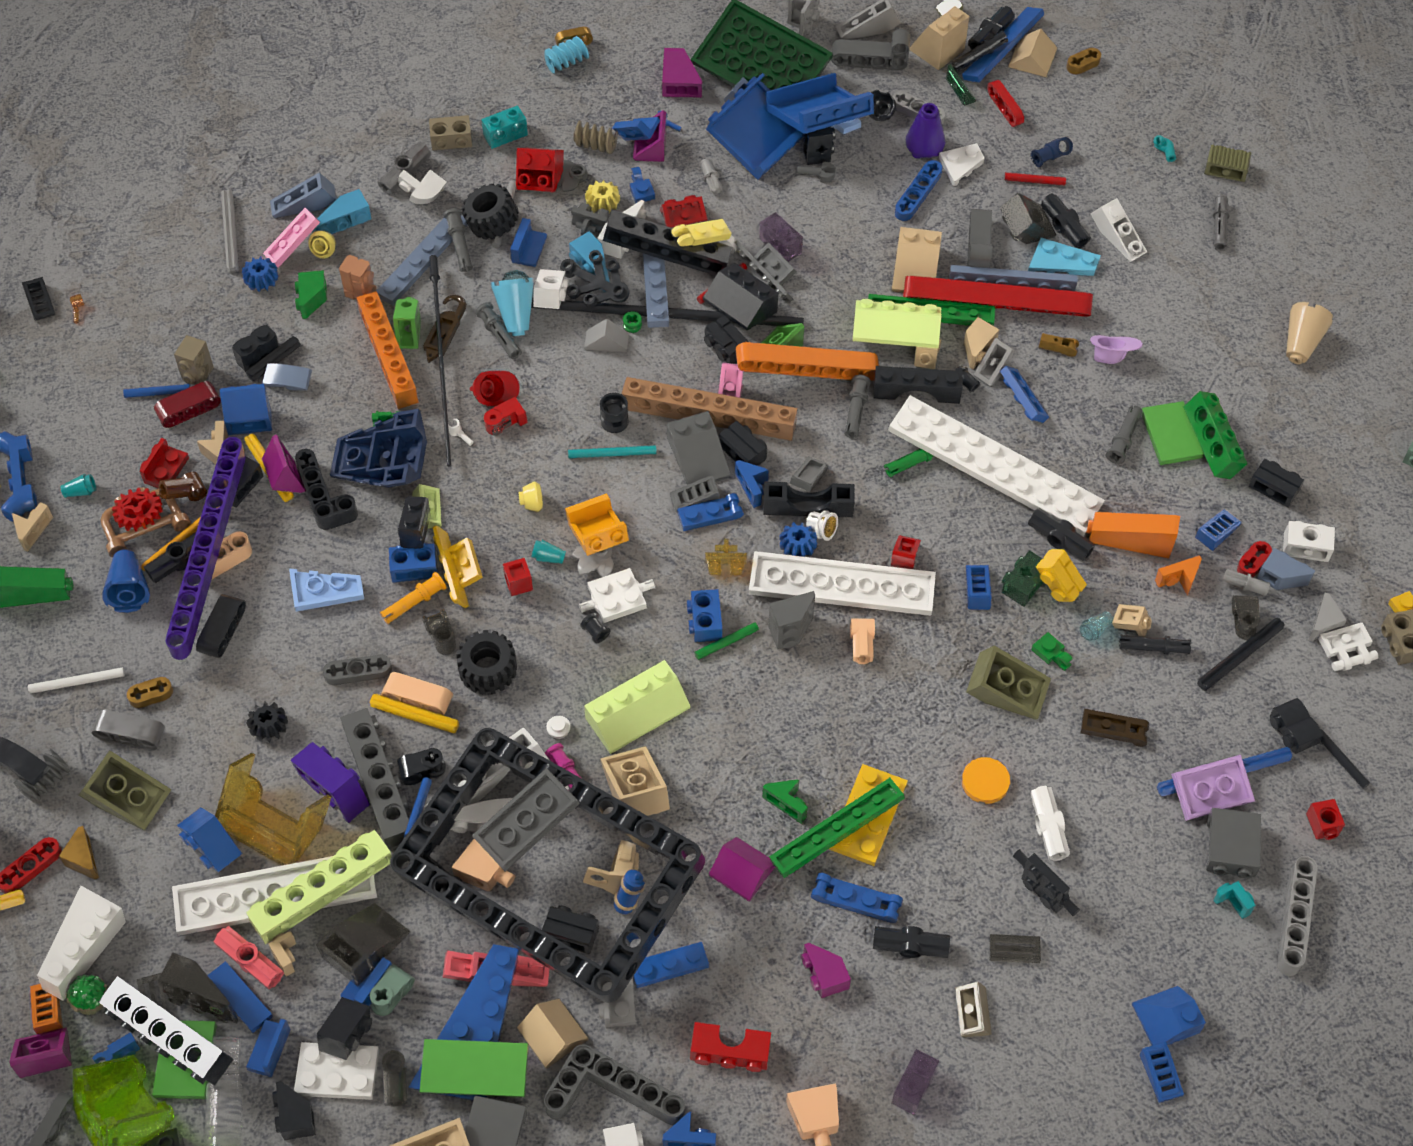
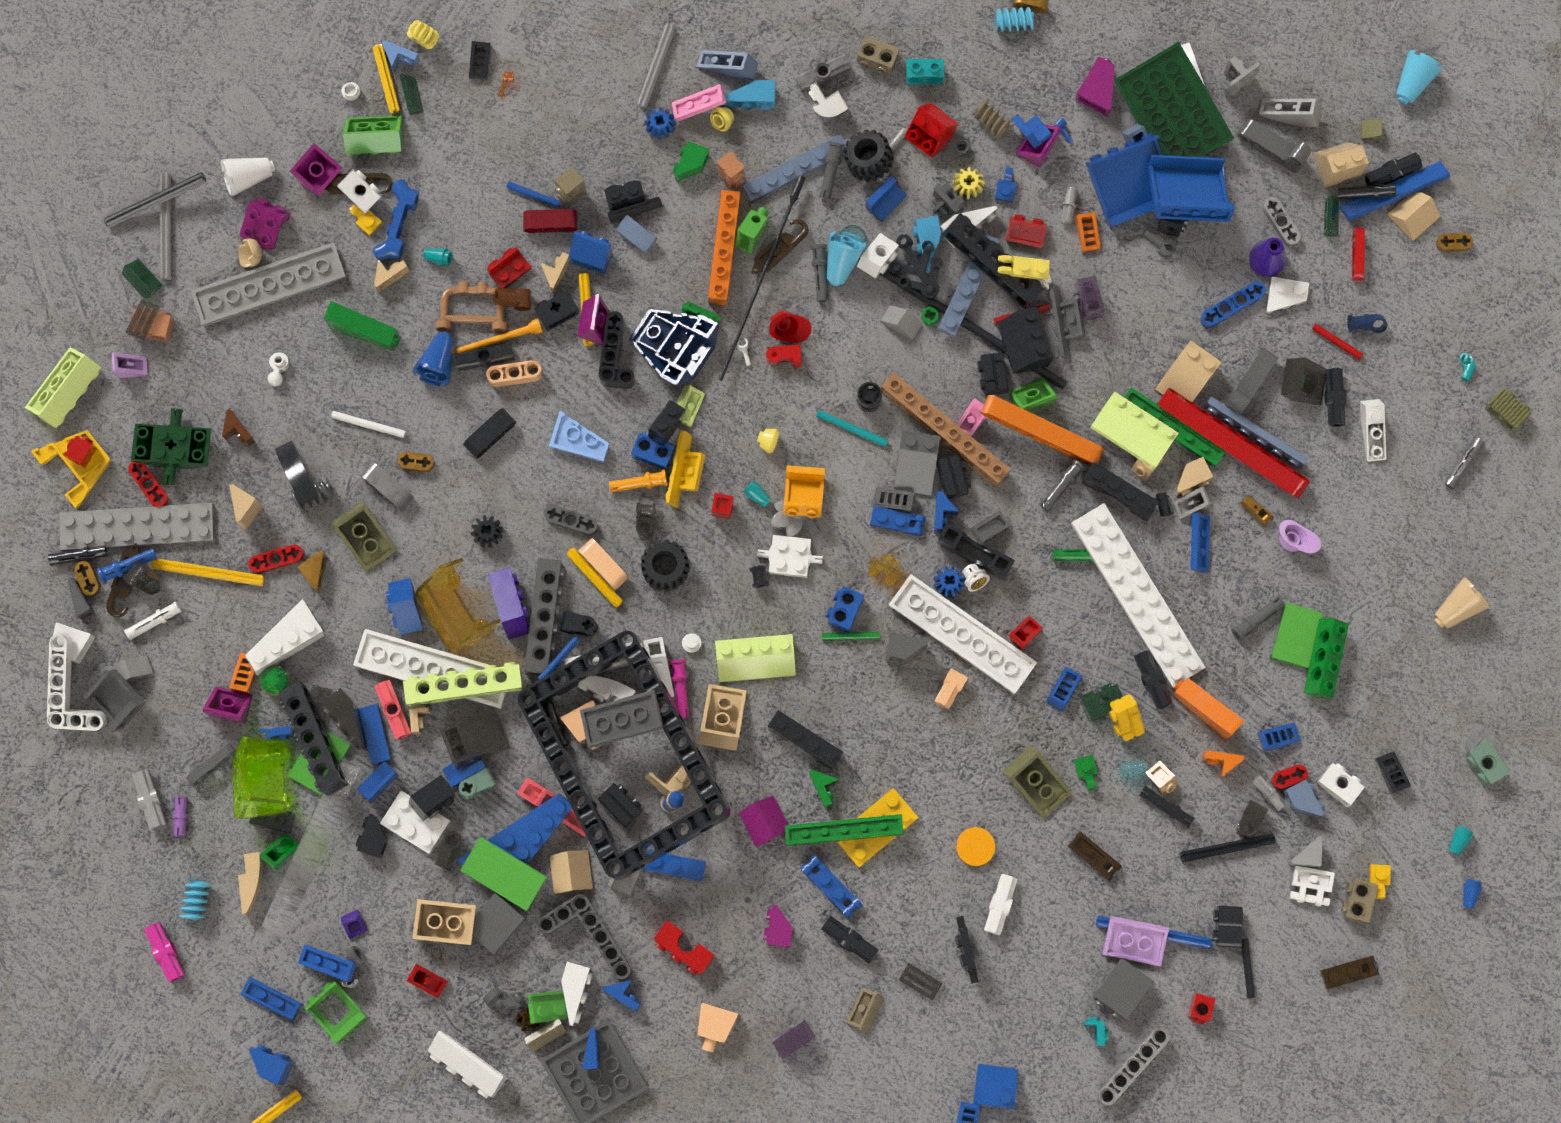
camera: 30 degrees right, 20 degrees up
(137, 509) = (476, 308): red gear -> none
(206, 555) = (505, 374): dark purple beam -> none
(741, 178) = (1092, 216): none -> orange slope
(763, 761) = (805, 739): none -> black arch
(883, 106) = (1248, 205): black hair -> none
(1058, 257) = (1310, 430): medium azure wing -> none
(1276, 482) = (1349, 723): black brick -> none
(1360, 506) = (1386, 775): none -> black slope

